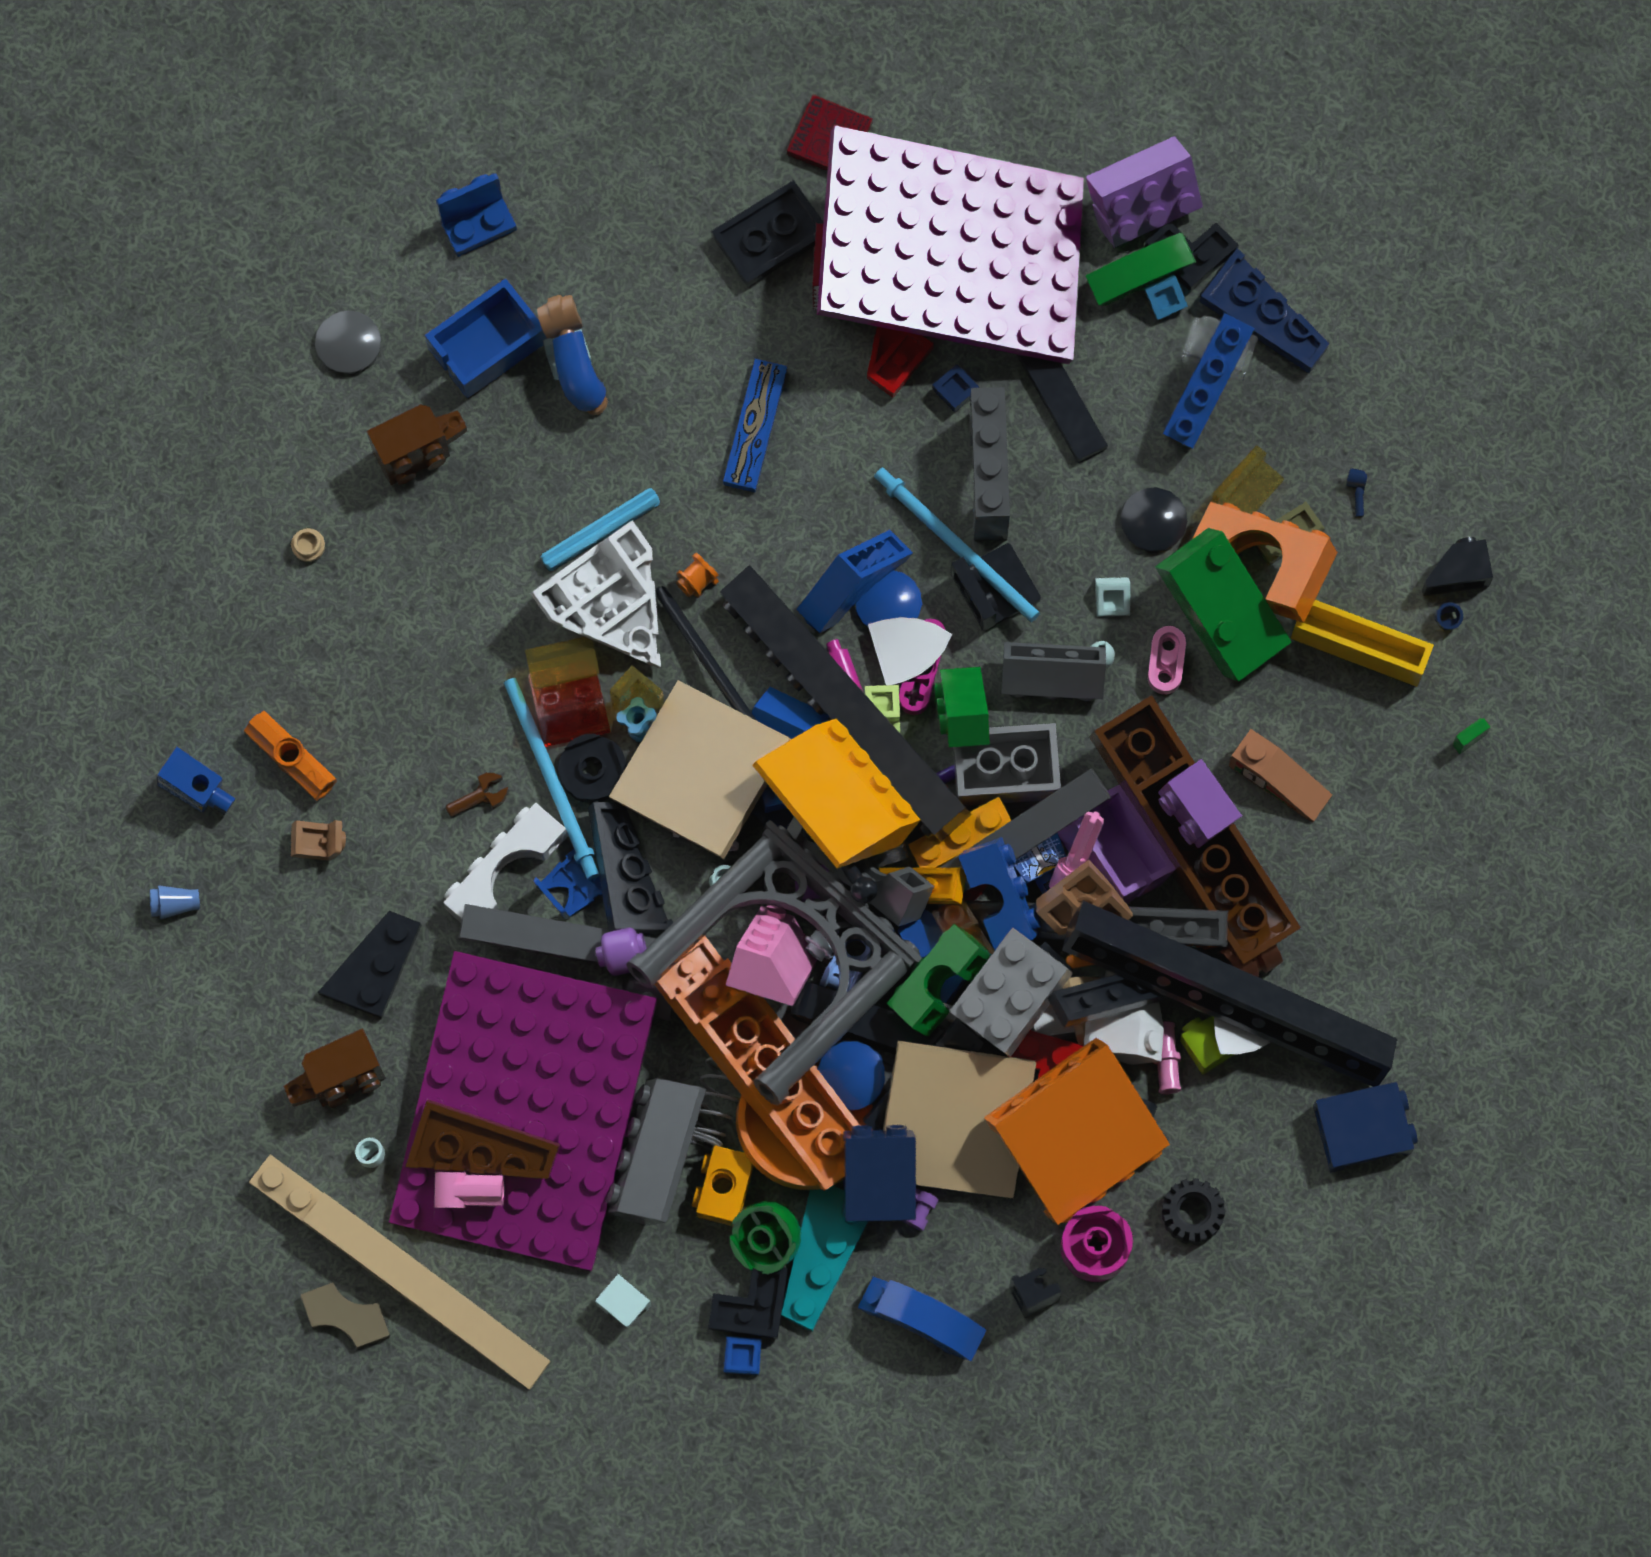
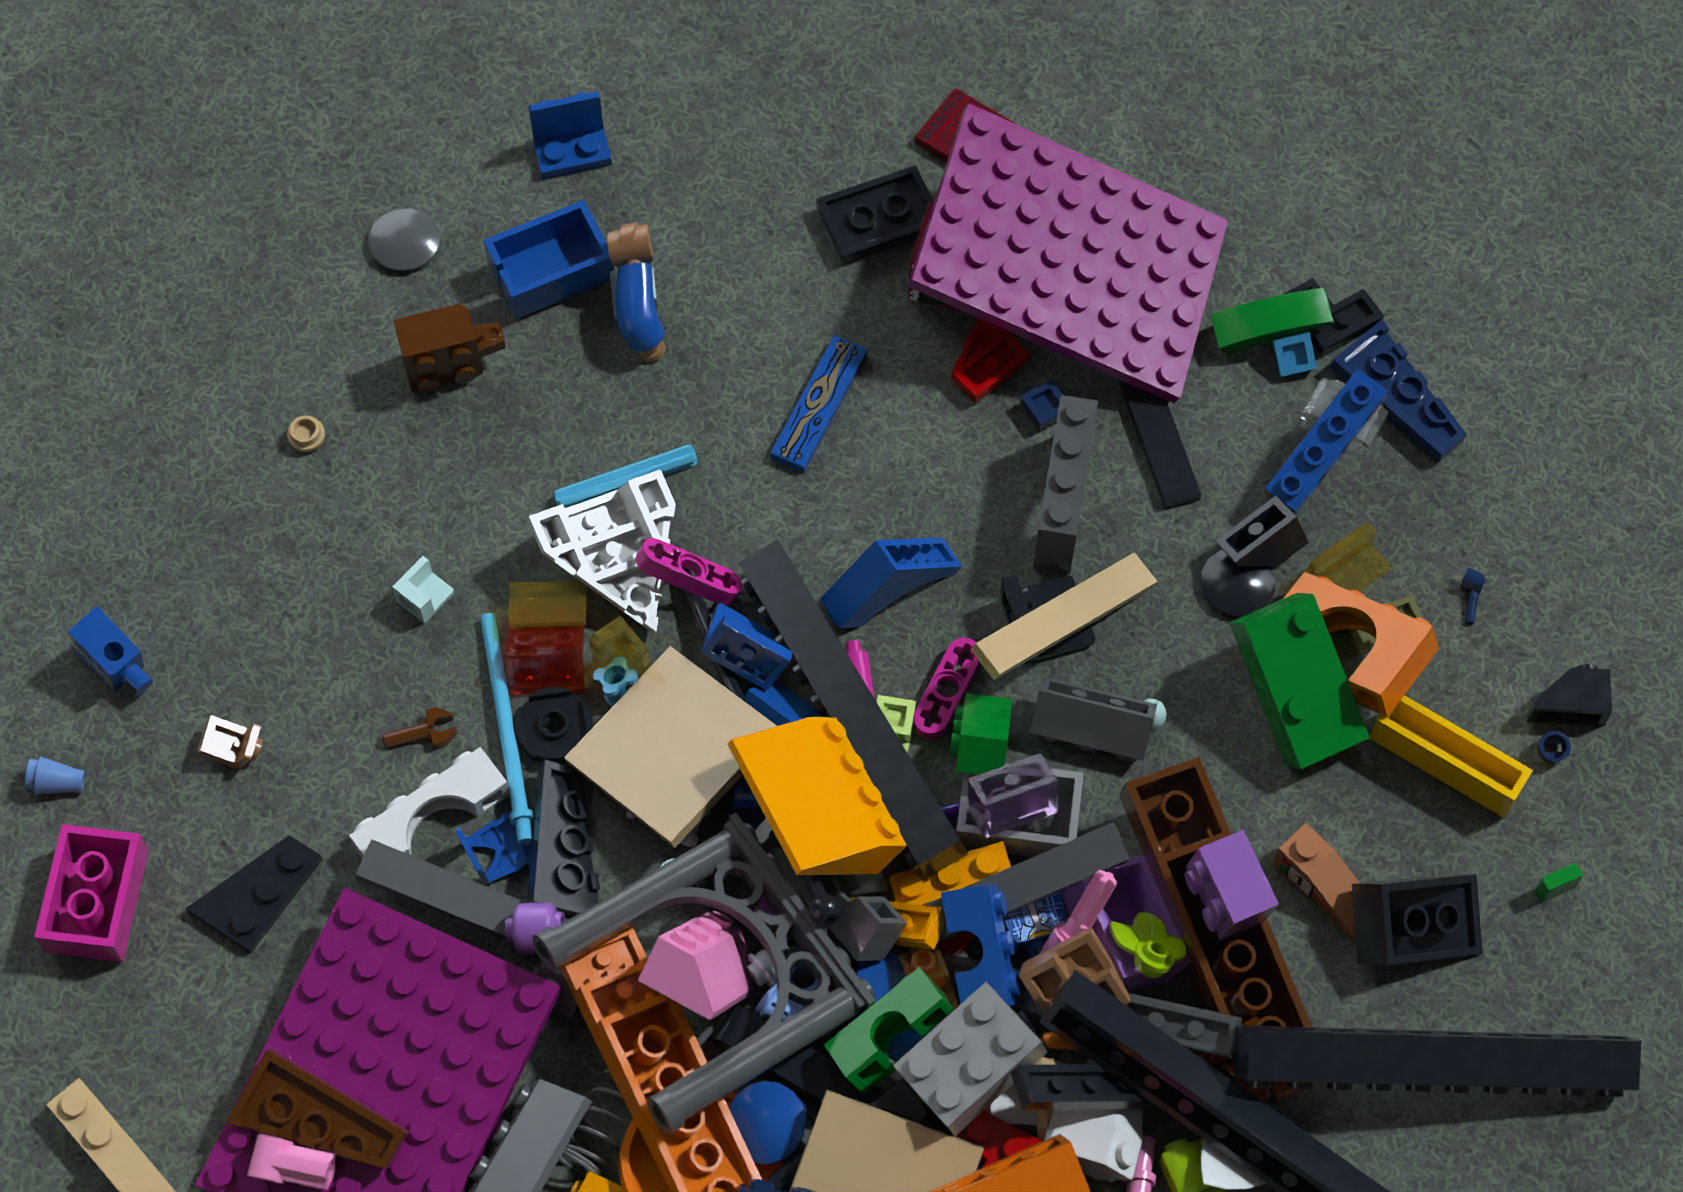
camera: 10 degrees right, 10 degrees down
(237, 996) = (92, 893): none -> dark pink brick
(304, 769) = (237, 662): orange piece -> none
(337, 1072) = (180, 998): reddish brown hinge -> none
(366, 1149) = (192, 1096): light aqua hinge -> none
(448, 670) = (421, 590): none -> light aqua panel
(655, 605) = (656, 560): none -> dark pink beam
(696, 577) = (719, 544): orange brick -> none
(743, 668) = (744, 647): none -> blue bracket
(890, 598) = (926, 615): blue dish -> none
(896, 488) = (958, 496): medium azure bar -> none
(907, 647) = (933, 663): white sticker -> none
(1001, 759) = (1012, 795): none -> clear purple brick
(1011, 585) = (1063, 616): none -> tan tile
(1112, 596) = (1176, 656): light aqua slope -> none
(1139, 863) = (1149, 943): none -> lime plate
(1144, 191) = (1291, 240): medium lavender piece -> none
(1166, 661) = (1223, 735): bright pink plate -> none
(1169, 476) = (1264, 536): none -> black slope
(1357, 792) = (1416, 919): none -> black slope
(1393, 911) = (1436, 1058): none -> black brick

